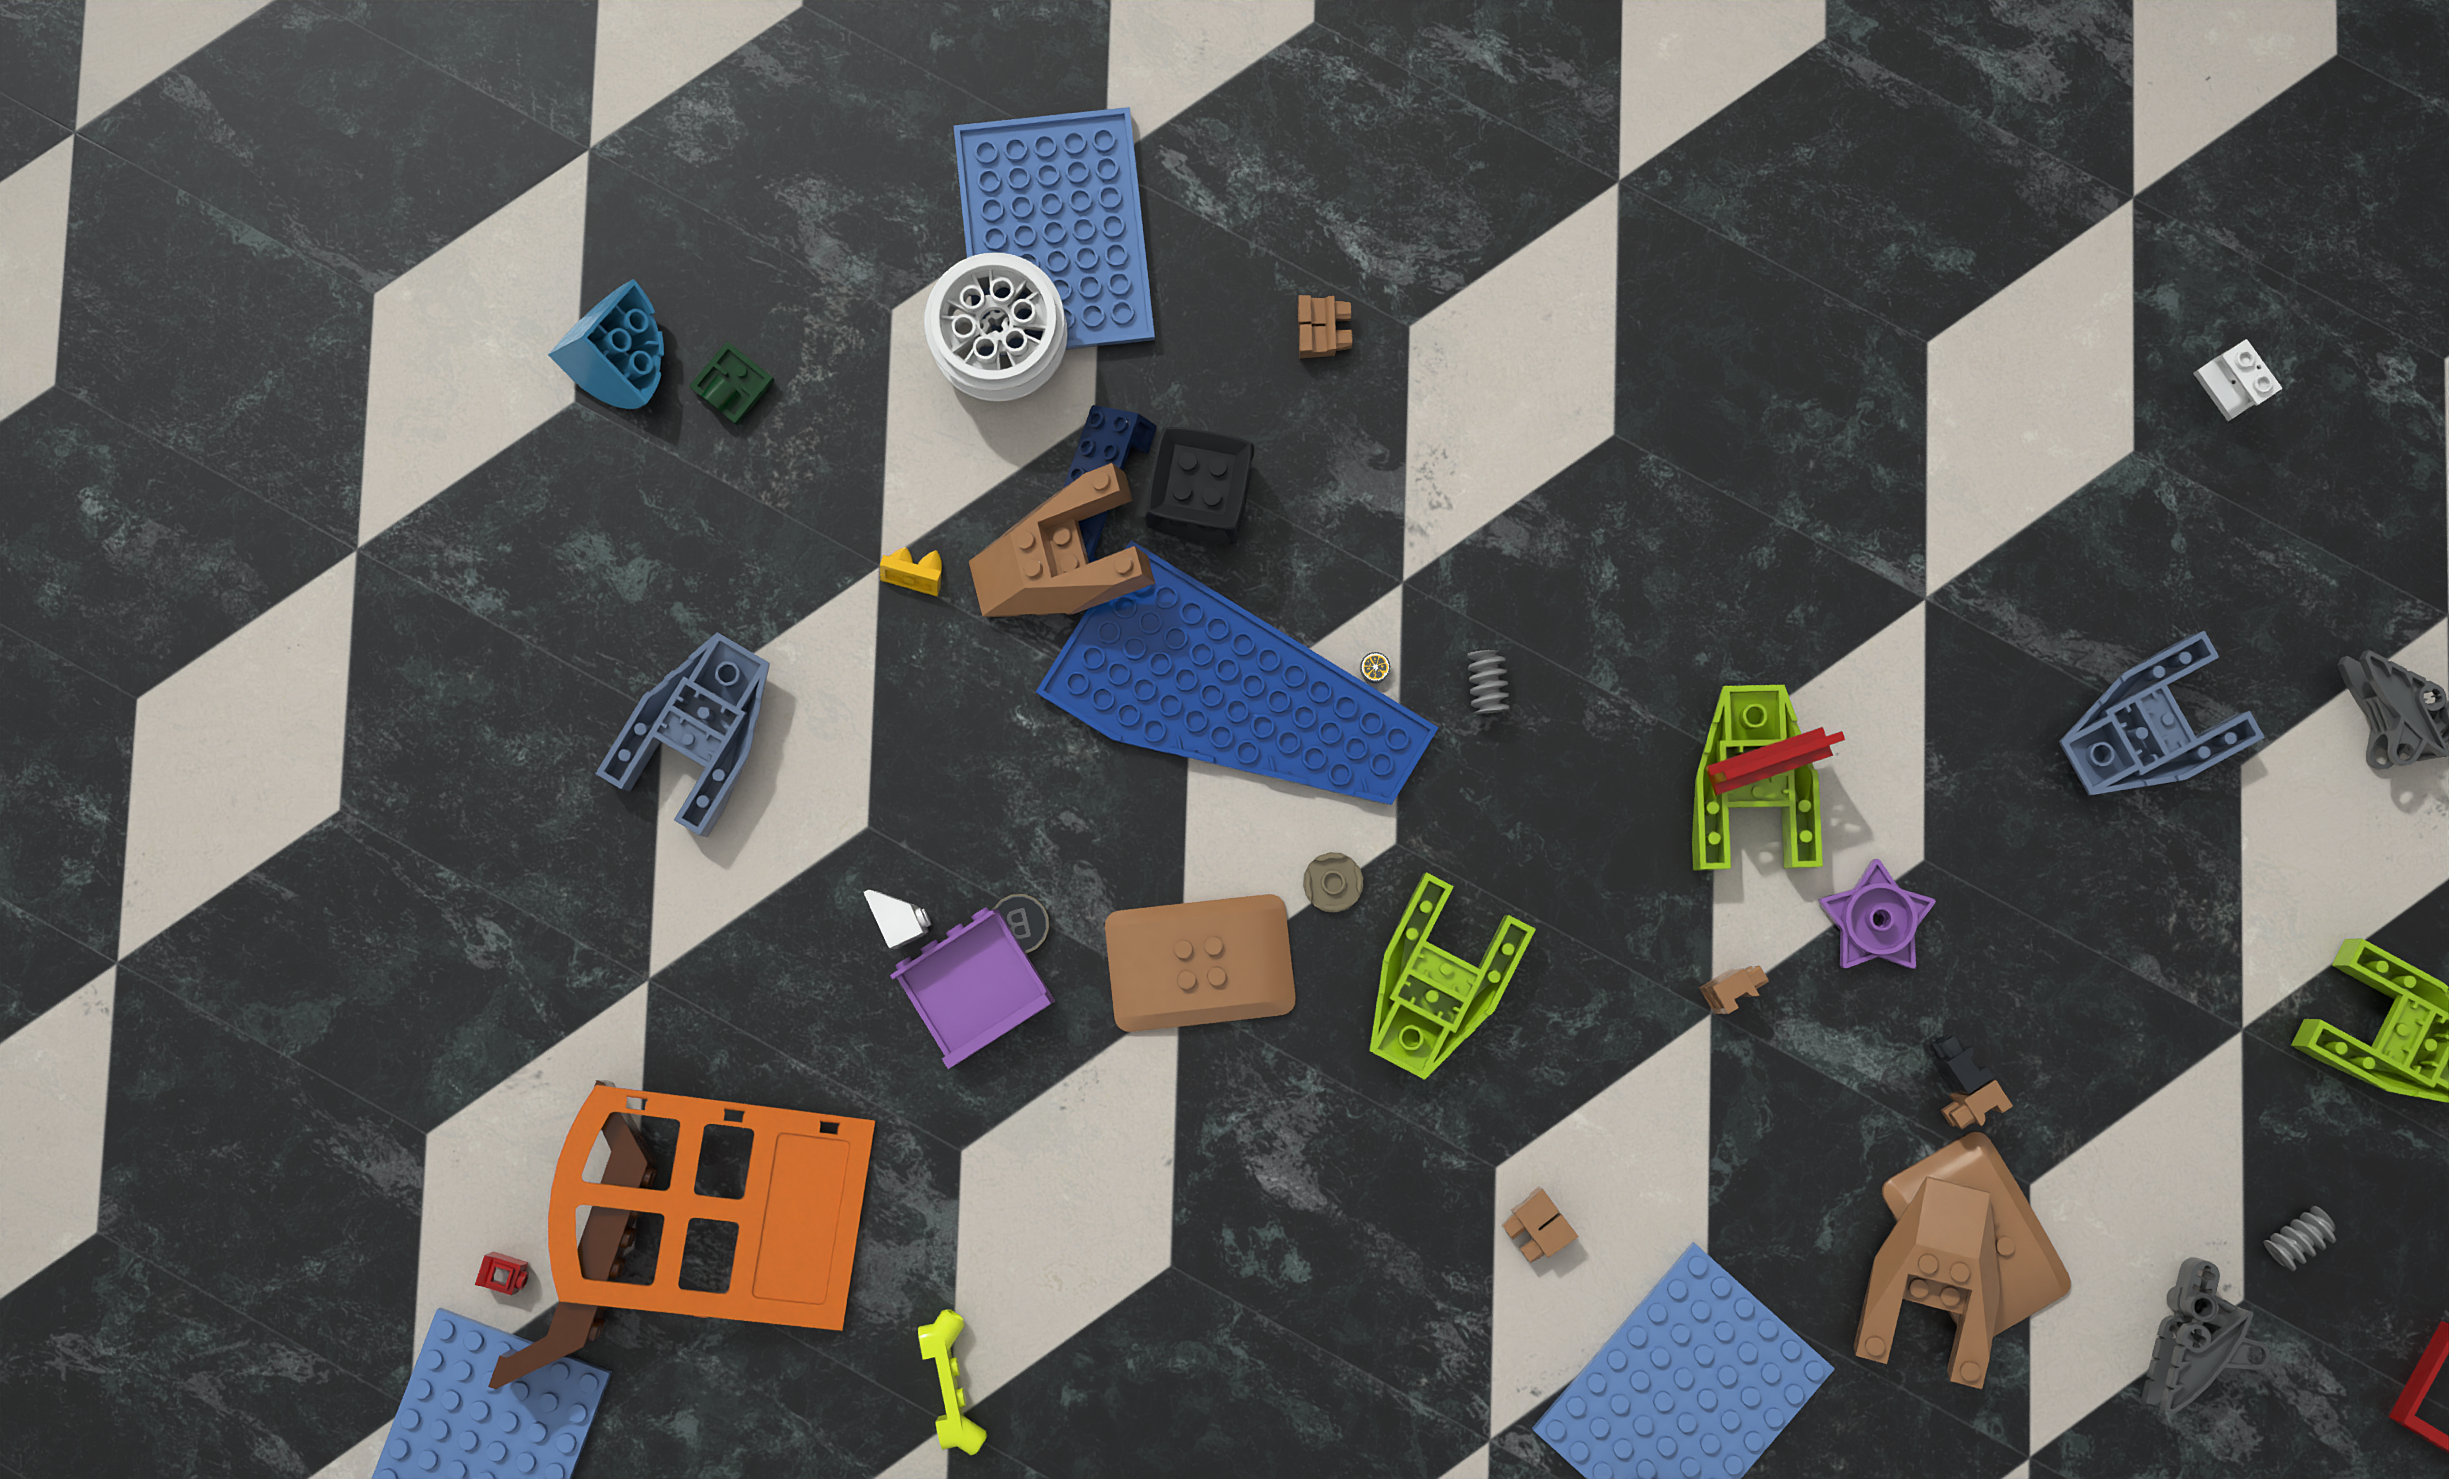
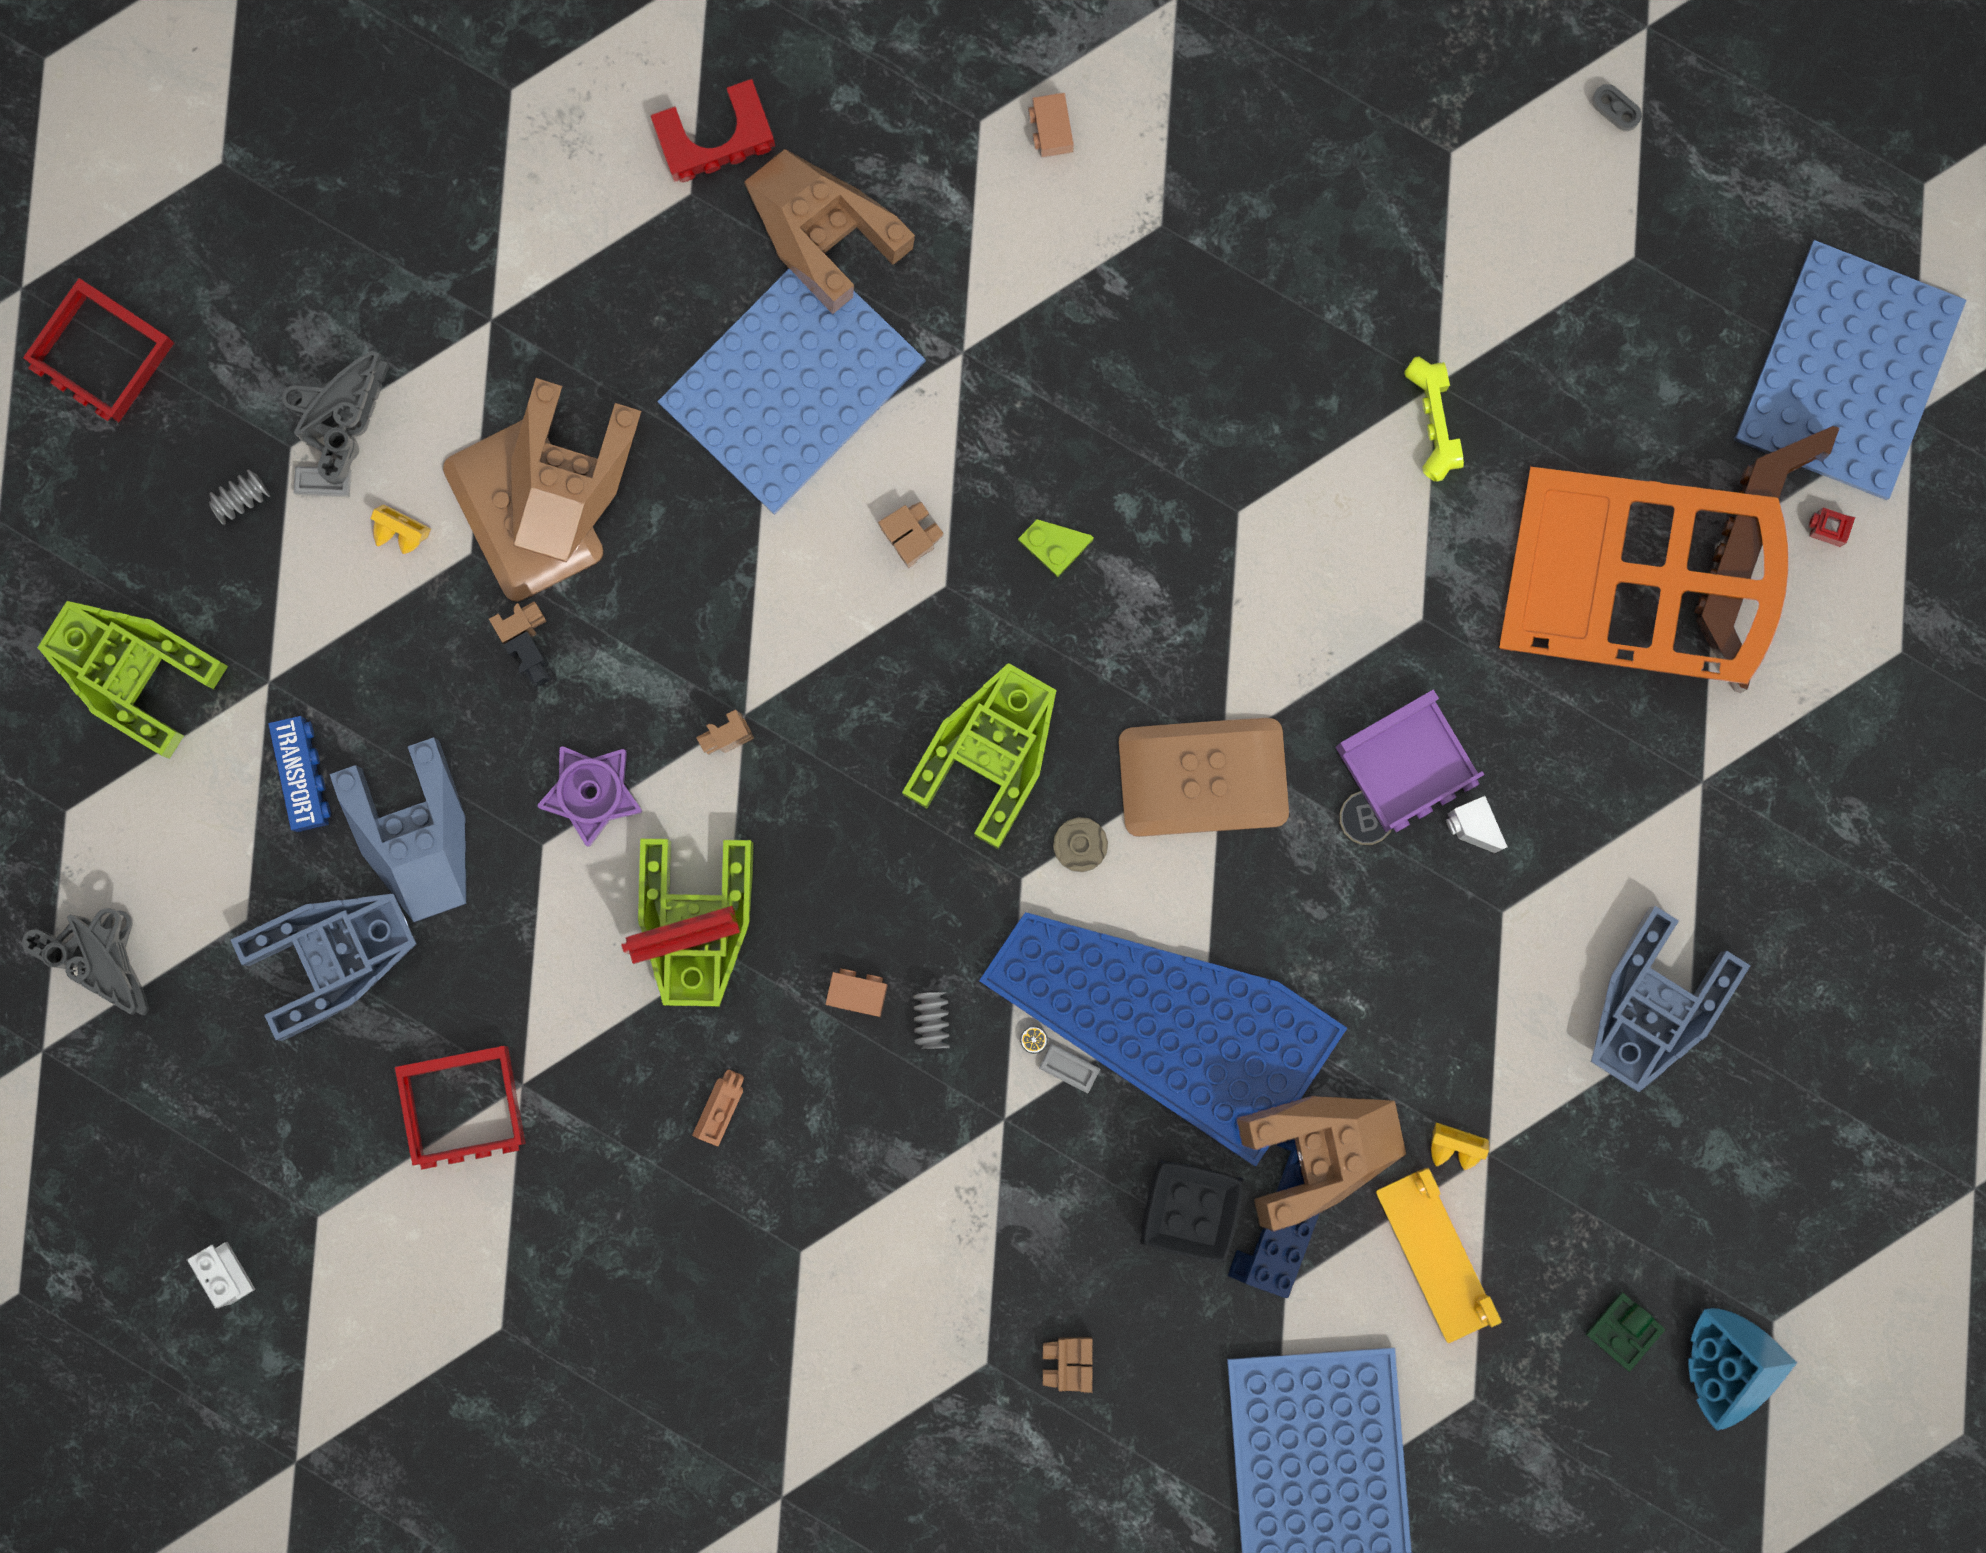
camera: 170 degrees left, 0 degrees up
(933, 454) = (1437, 1255): none -> yellow bracket
(982, 375) = (1342, 1333): white wheel -> none
(1335, 638) = (1069, 1068): none -> light grey tile
(1376, 1219) = (1054, 544): none -> lime wing
(1570, 709) = (856, 993): none -> nougat brick
(1712, 579) = (719, 1108): none -> nougat hinge
(2045, 558) = (457, 1155): none -> red window
(2065, 849) = (417, 848): none -> sand blue wedge
(2124, 1216) = (391, 521): none -> yellow tile
(2201, 927) = (299, 773): none -> blue brick
(2223, 1256) = (310, 483): none -> light grey tile

